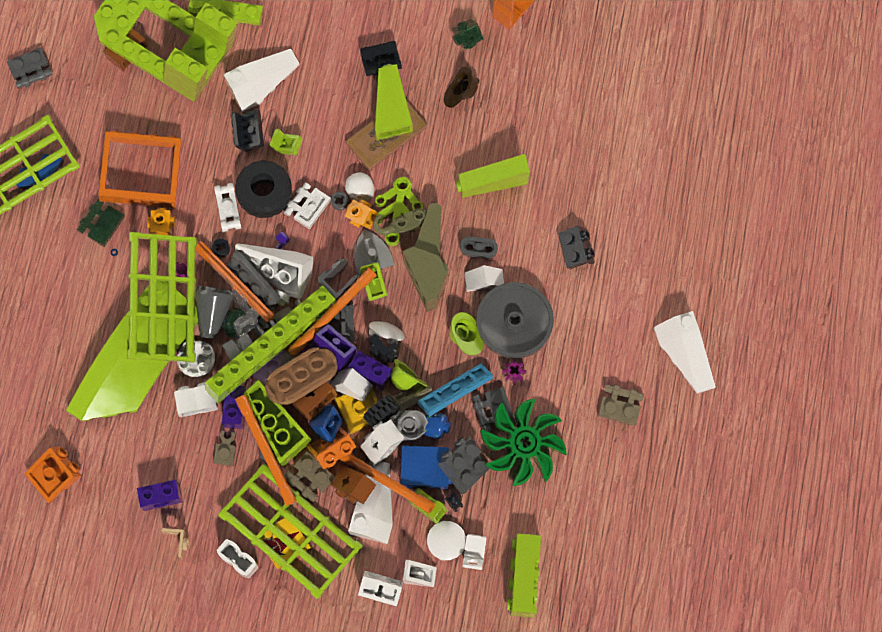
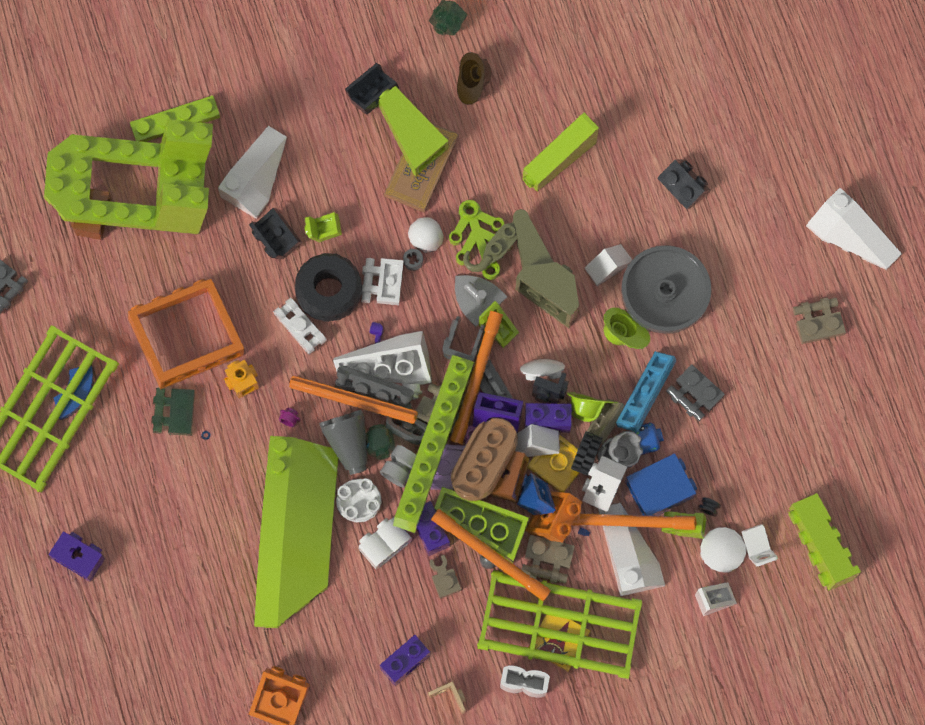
camera: 30 degrees left, 0 degrees up
(153, 315) = (293, 476): lime door -> none
(221, 242) = (313, 366): black bush -> none
(247, 322) = (397, 431): clear bracket -> none
(352, 485) = (599, 543): dark orange brick -> none
(360, 214) = (445, 261): light orange brick -> none
(380, 588) = (687, 632): white brick -> none
(463, 464) = (699, 463): dark grey plate -> none
(479, 246) = (584, 234): dark grey plate -> none
(514, 366) = (688, 342): magenta gear -> none
(516, 448) = (747, 398): green piece -> none

